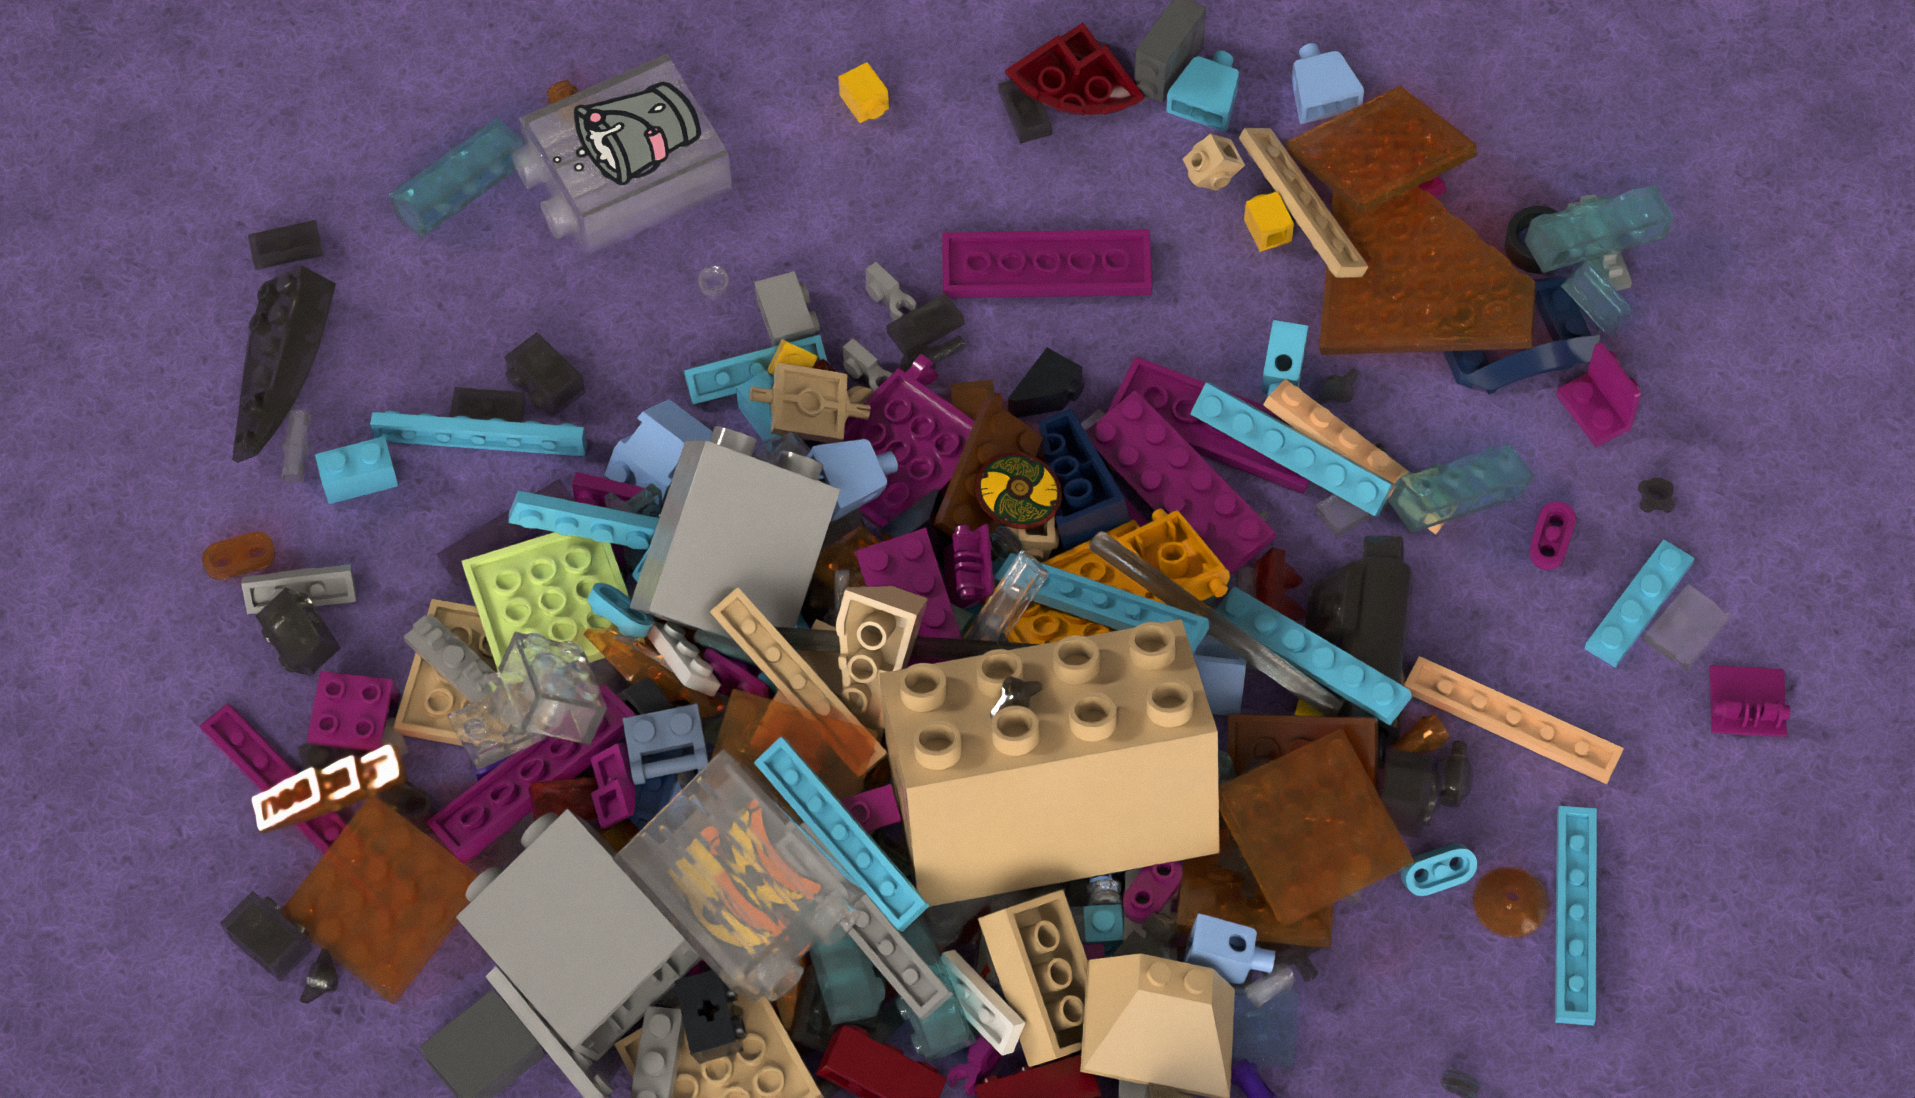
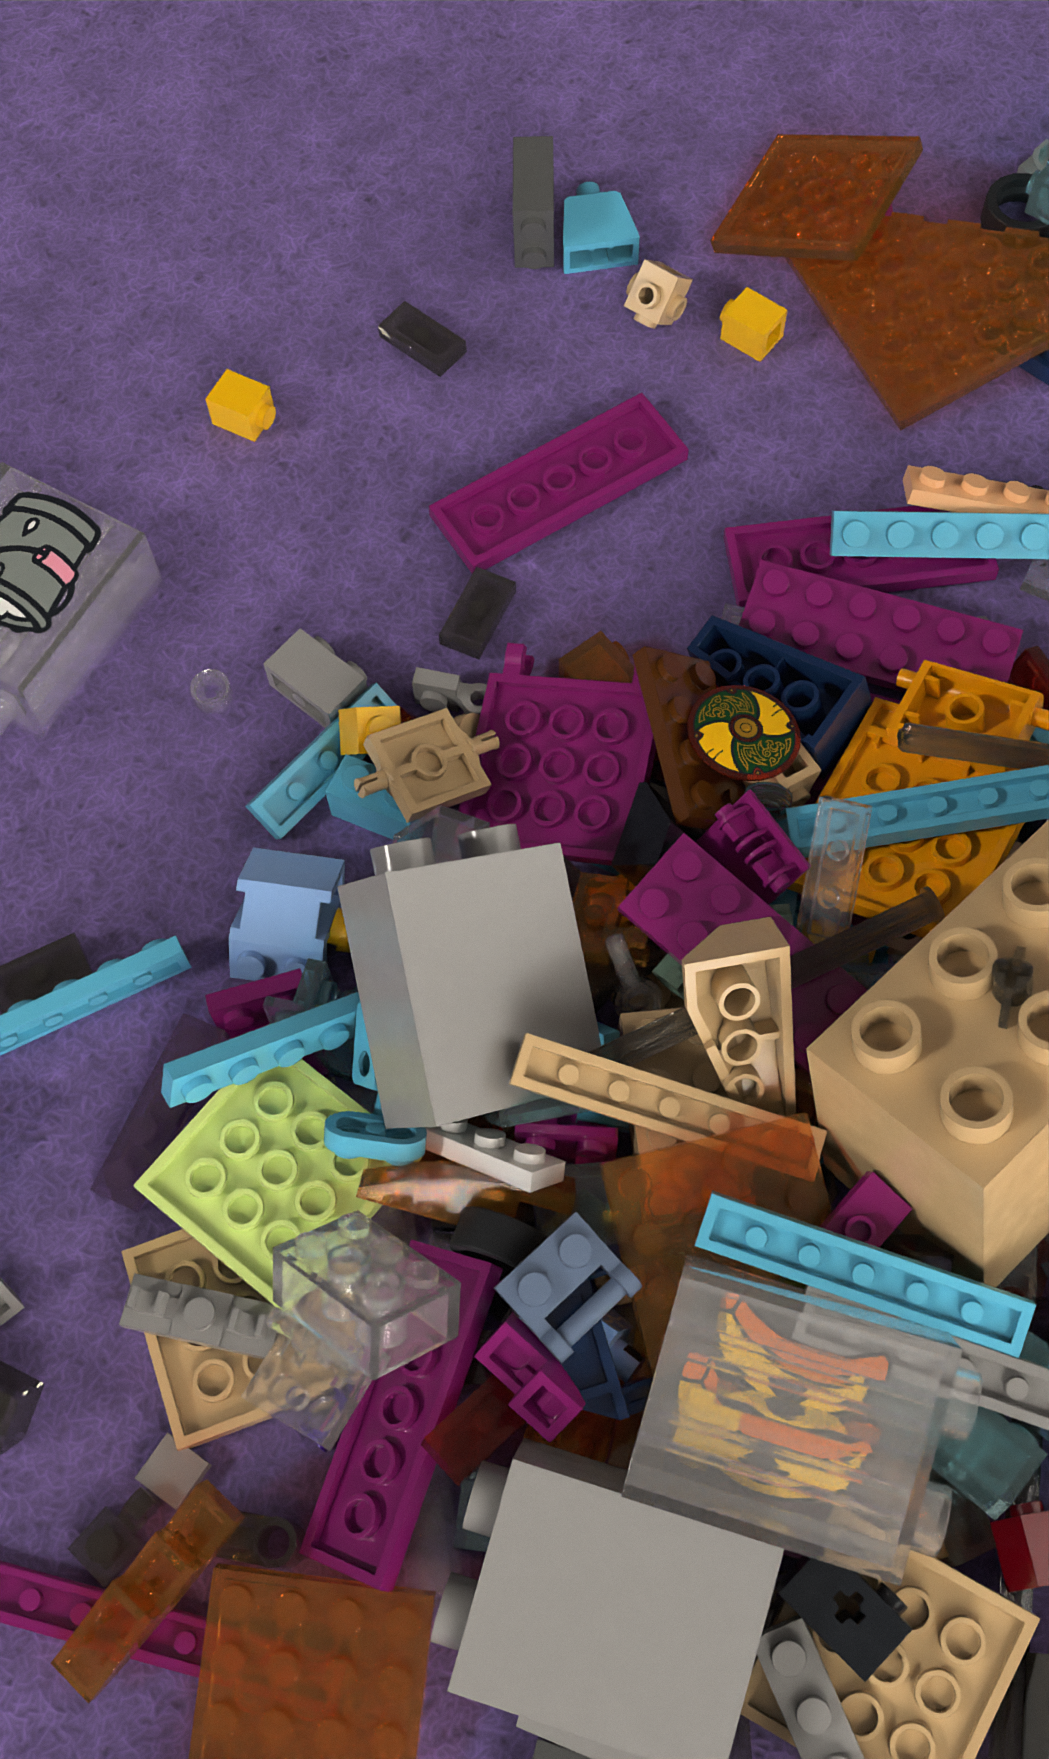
camera: 30 degrees left, 5 degrees up
(351, 711) = (112, 1466): magenta bracket -> none
(544, 375) = (84, 899): clear smoke brick -> none
(855, 471) = (539, 807): light blue torso -> none
(884, 287) = (409, 596): light grey plate -> none
(934, 353) = (493, 651): clear smoke plate -> none
(1047, 386) = (658, 604): black slope -> none
(1076, 76) = (455, 278): dark red brick -> none
(1284, 355) = (881, 449): medium azure torso -> none
(1303, 203) = (791, 292): tan plate -> none
(1324, 85) = (705, 168): light blue torso -> none
(1338, 388) = (948, 452): clear smoke piece -> none

